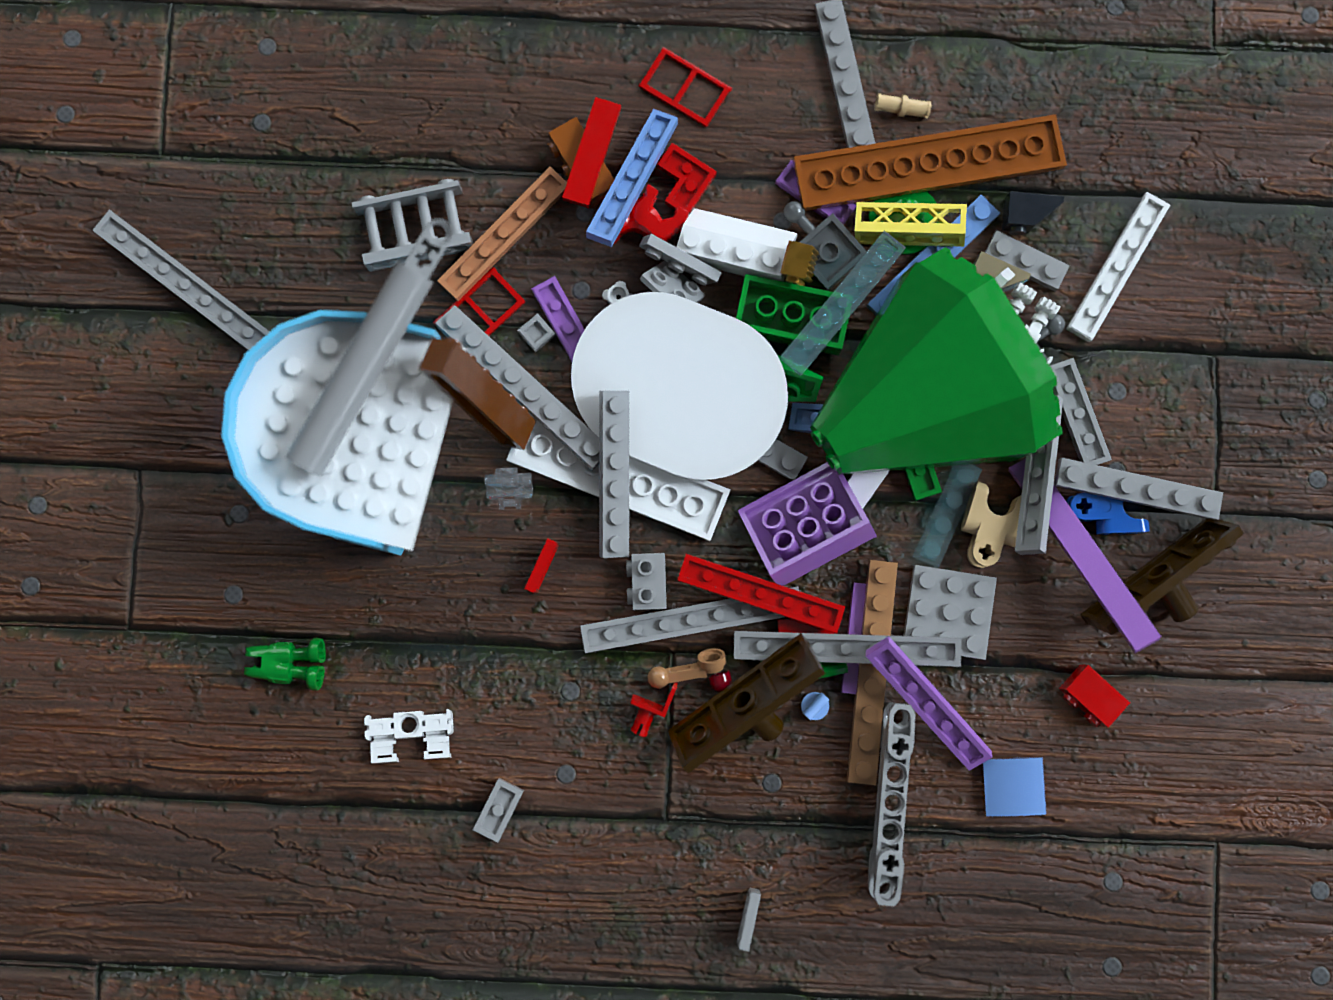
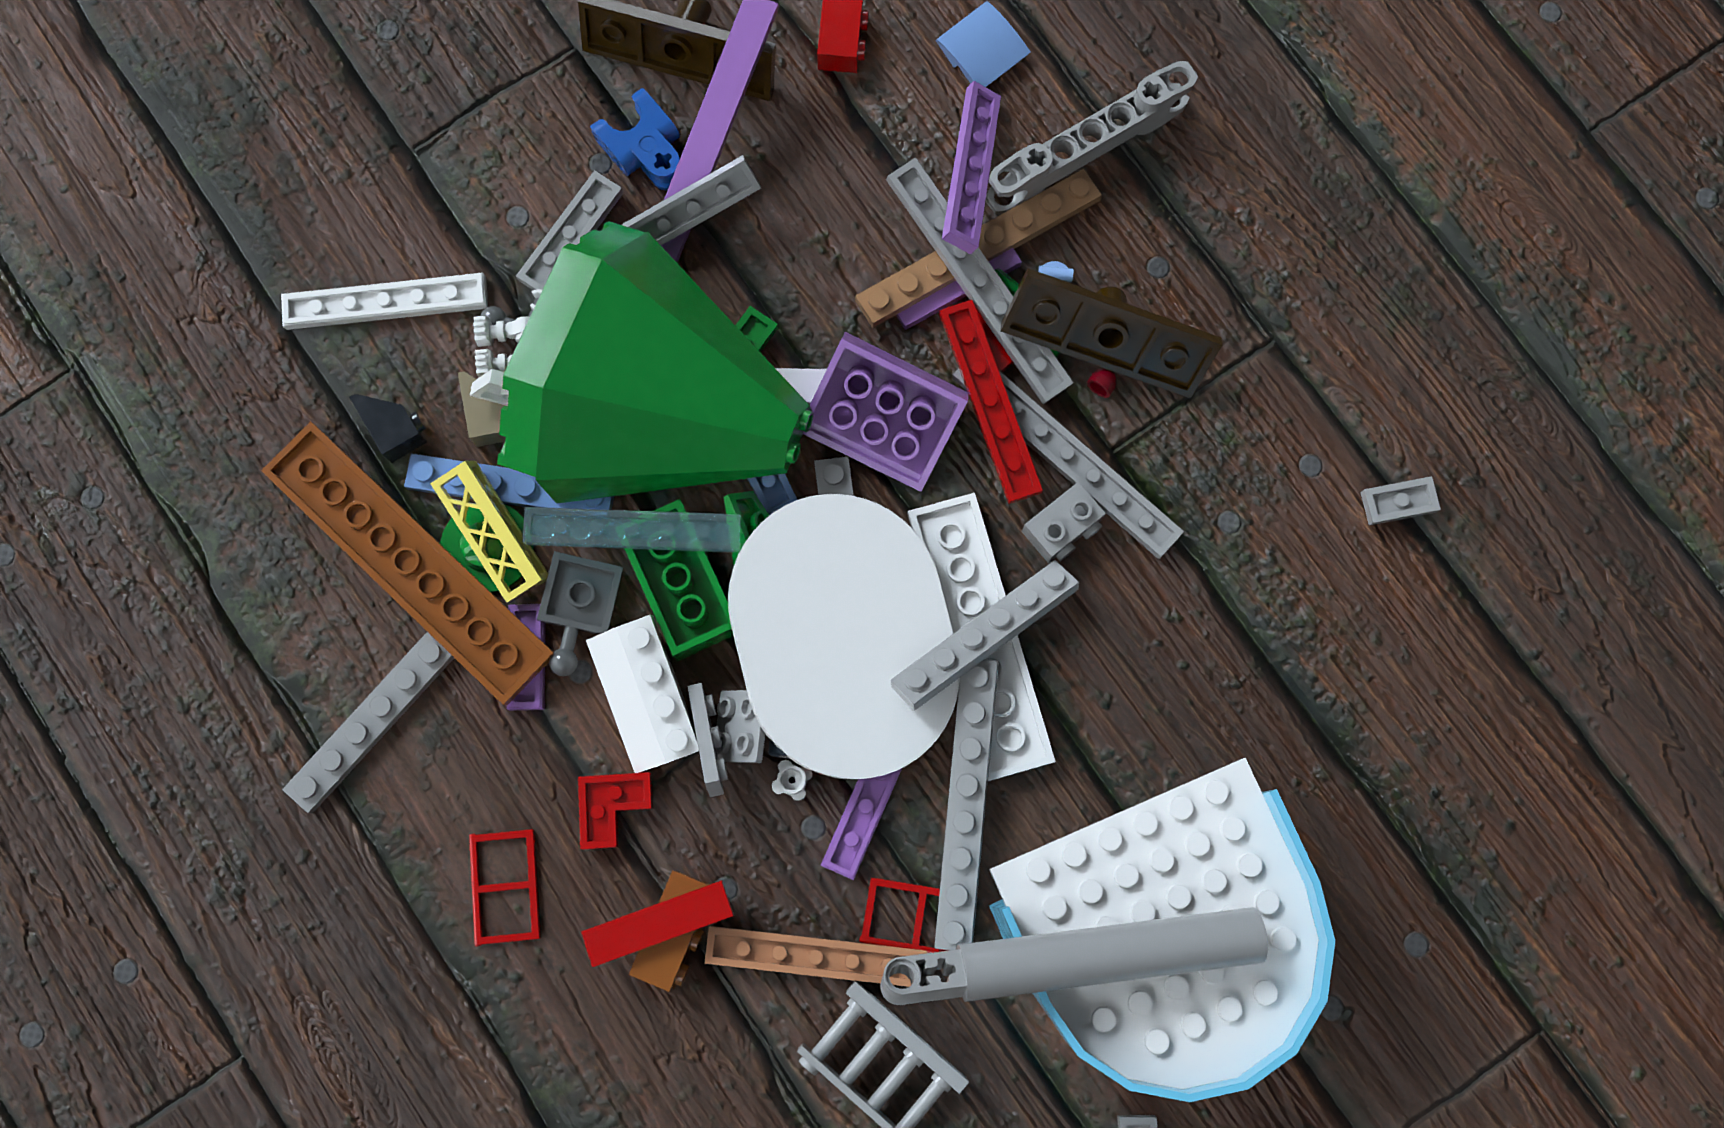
camera: 125 degrees left, 5 degrees down
(278, 663) = (1447, 834): green piece -> none
(433, 725) = (1375, 629): white piece -> none
(477, 392) = (1024, 823): reddish brown brick -> none
(513, 484) = (1078, 739): clear piece -> none
(536, 332) = (896, 838): light grey tile -> none
(542, 566) = (1133, 641): red tile -> none
(632, 178) = (654, 857): medium blue plate -> none
(646, 220) = (688, 814): red animal -> none
(648, 710) = (1183, 428): red bracket -> none
(708, 662) = (1146, 442): medium nougat piece -> none
(748, 919) = (1302, 193): light grey tile -> none
(799, 263) = (620, 606): pearl gold brick -> none
(903, 105) = (361, 635): tan pin -> none
(946, 514) = (772, 287): clear light blue plate -> none
(951, 606) = (860, 220): light grey plate -> none
(987, 528) = (754, 237): tan piece -> none
(1043, 268) = (443, 394): light grey plate -> none
(1138, 489) = (608, 123): light grey plate -> none

